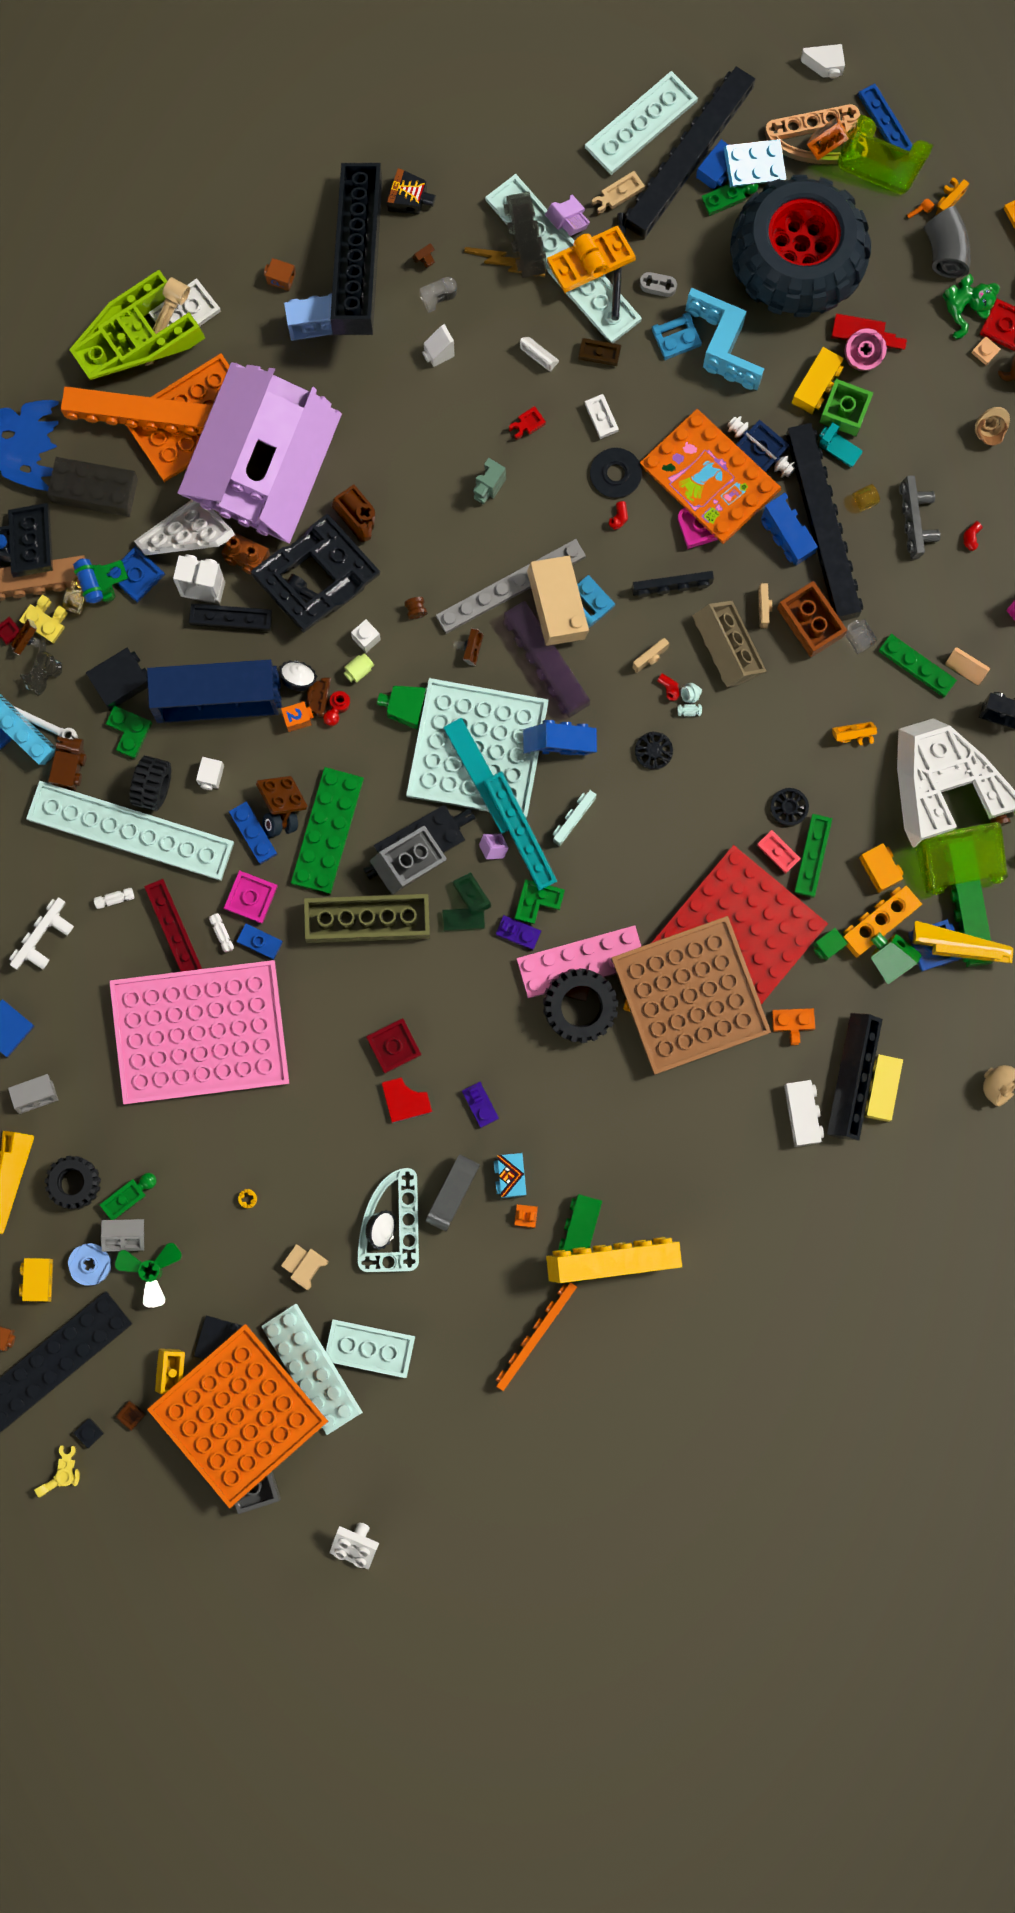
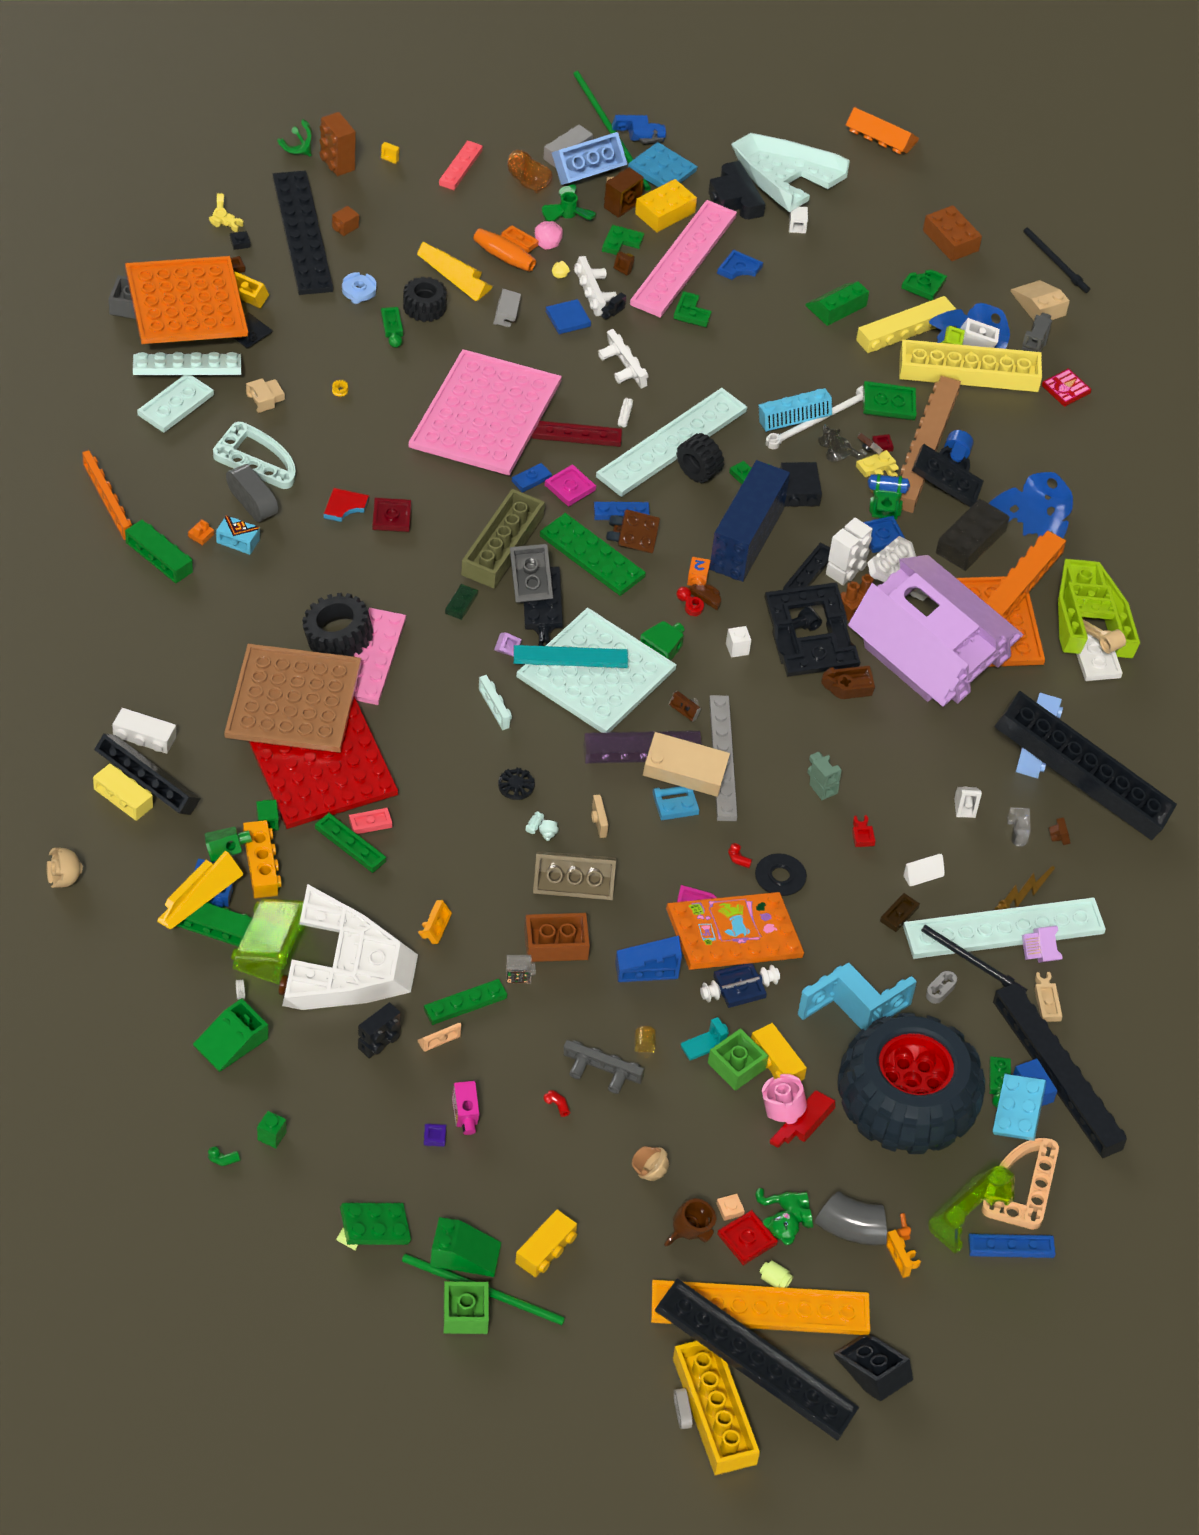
camera: 115 degrees right, 30 degrees down
(36, 1279) = (369, 256): yellow brick -> none
(67, 763) = (749, 426): reddish brown hinge -> none
(122, 1235) = (366, 308): light grey hinge -> none
(152, 1294) = (327, 309): green piece -> none
(210, 773) = (686, 503): white brick -> none
(221, 933) = (555, 459): white axle -> none
(280, 274) = (1096, 728): dark orange brick -> none
(297, 675) = (733, 584): white piece -> none
(354, 1546) = (43, 328): white plate -> none
(358, 668) = (714, 626): yellowish green brick -> none
(380, 1229) = (257, 441): white piece -> none
(409, 194) = (1127, 847): black torso -> none
(415, 608) = (742, 684): reddish brown wheel -> none
(472, 894) = (477, 610): clear green plate -> none
(480, 1104) = (307, 545): dark purple plate -> none
(518, 932) = (426, 629): dark purple plate -> none
(520, 831) = (506, 655): teal tile -> none
(525, 232) = (1039, 901): clear smoke wedge -> none
(532, 899) = (446, 649): green plate -> none
(560, 738) = (565, 716): blue wedge -> none
(591, 258) = (990, 936): light orange plate -> none
(601, 416) = (838, 885): white plate -> none
(613, 1261) = (123, 547): yellow brick -> none
(641, 123) = (1109, 1048): light aqua plate -> none
(671, 685) = (564, 820): red arm -> none
(680, 341) = (877, 972): dark azure plate -> none
(680, 582) = (655, 854): black plate -> none
(765, 605) = (594, 914): tan plate -> none
(789, 806) = (403, 849): black wheel -> none
(793, 1021) = (221, 765): orange plate -> none
(823, 521) = (639, 993): black brick -> none
(825, 60) = (1098, 1222): white slope -> none
(829, 137) = (1010, 1159): orange torso -> none
(881, 867) = (299, 876): light orange brick -> none

